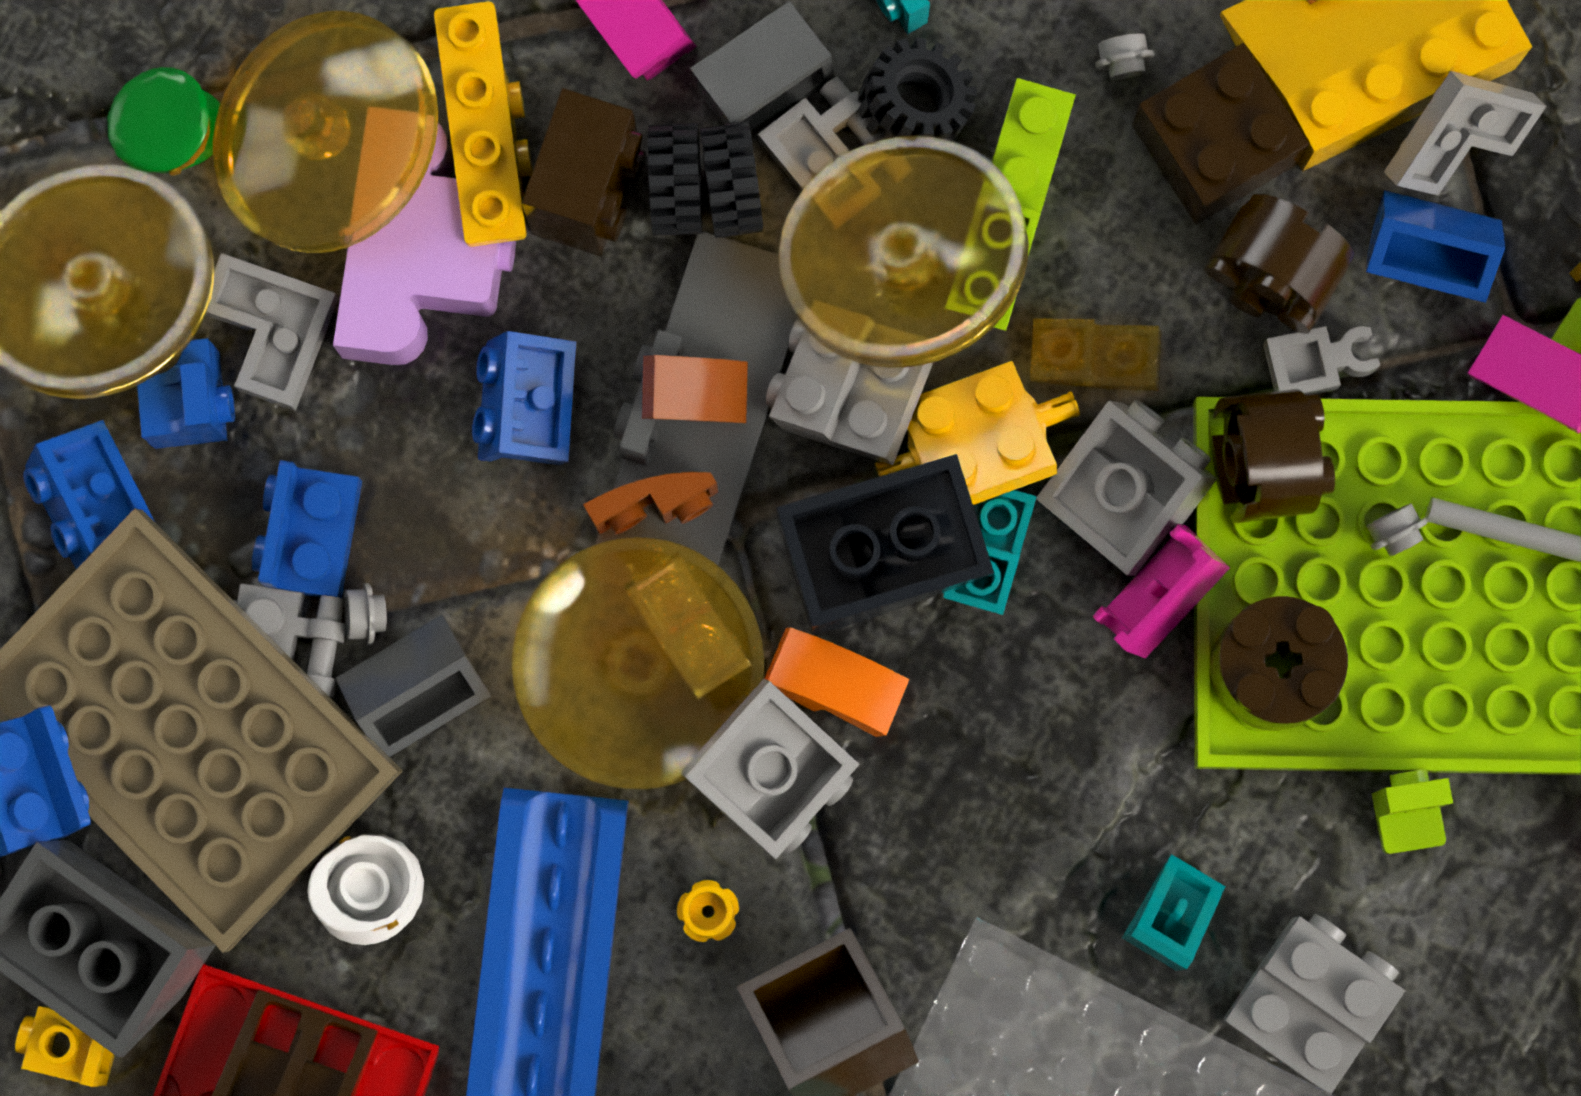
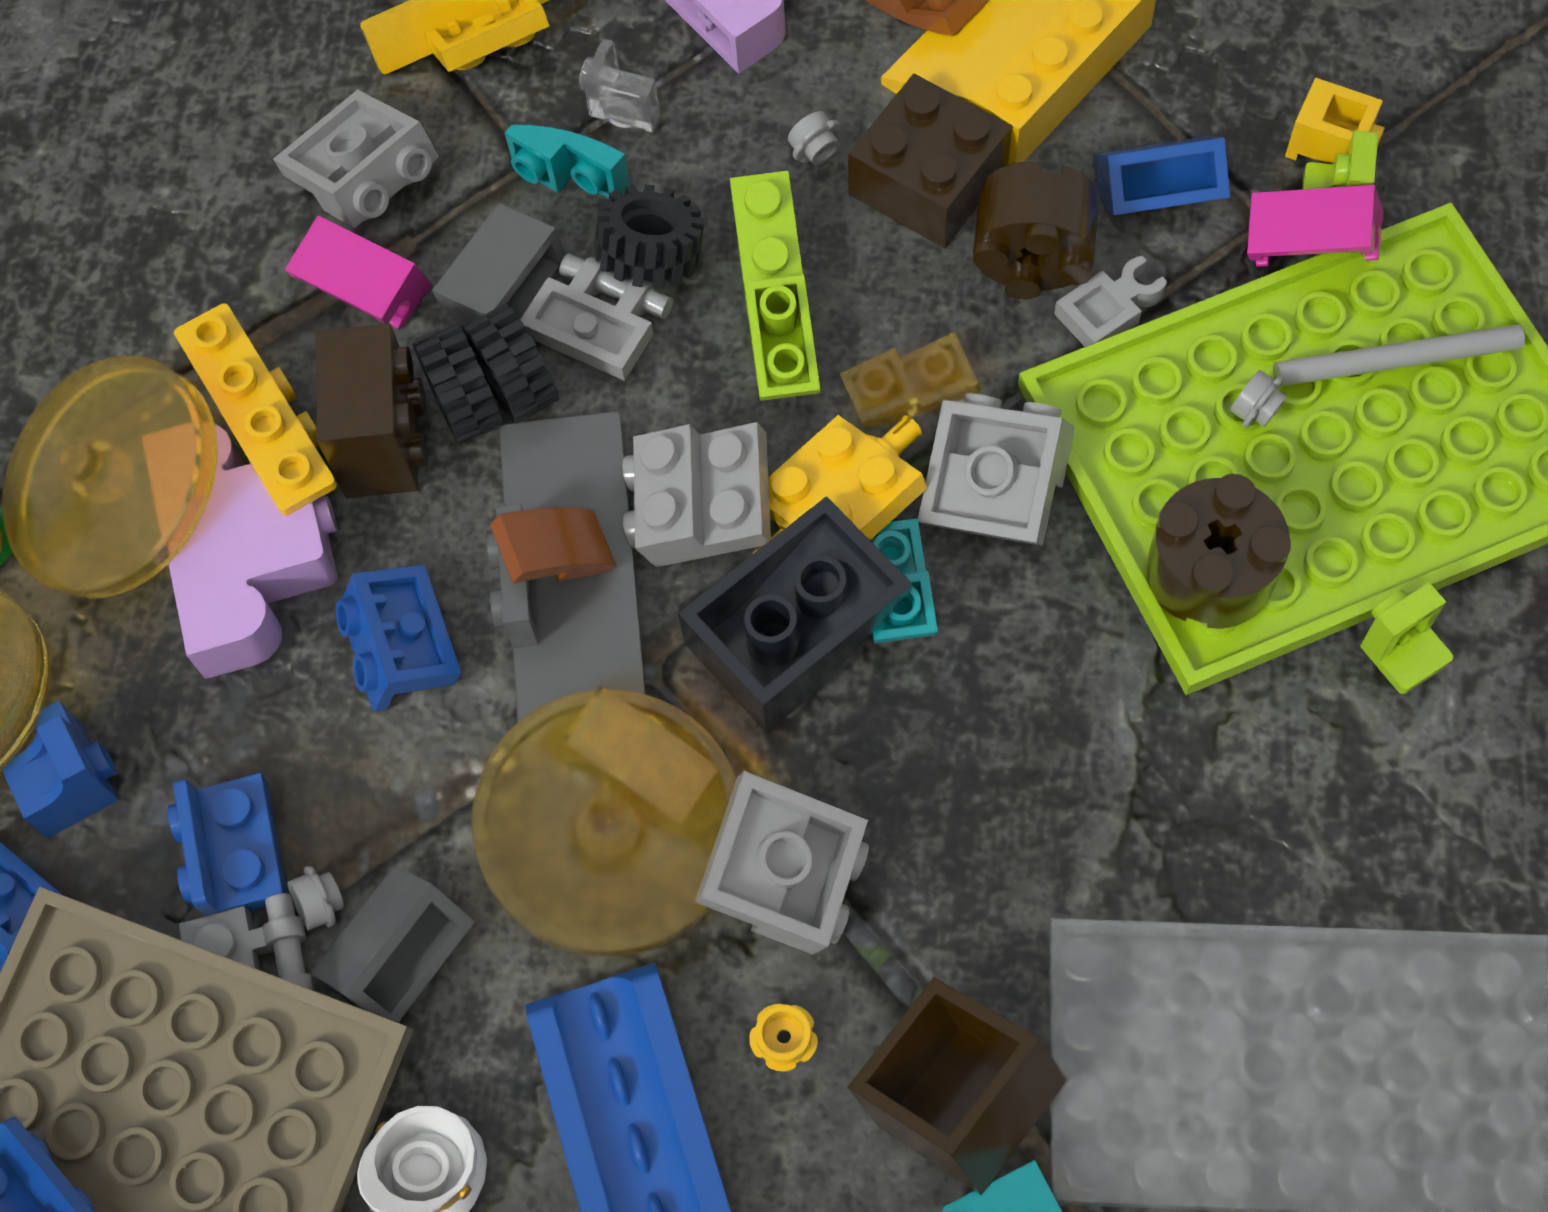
camera: 20 degrees left, 15 degrees down
(287, 326) = (134, 663): light grey plate -> none
(673, 494) = (569, 652): dark orange slope -> none
(836, 681) = (813, 757): orange slope -> none
(904, 251) = (695, 349): clear yellow dish -> none
(1162, 592) = (1077, 544): dark pink hinge -> none
(1175, 914) = (1240, 838): teal slope -> none
(1271, 455) = (1115, 375): dark brown brick -> none
(1315, 1001) = (1415, 854): light grey plate -> none
(1459, 116) = (1128, 58): light grey plate -> none

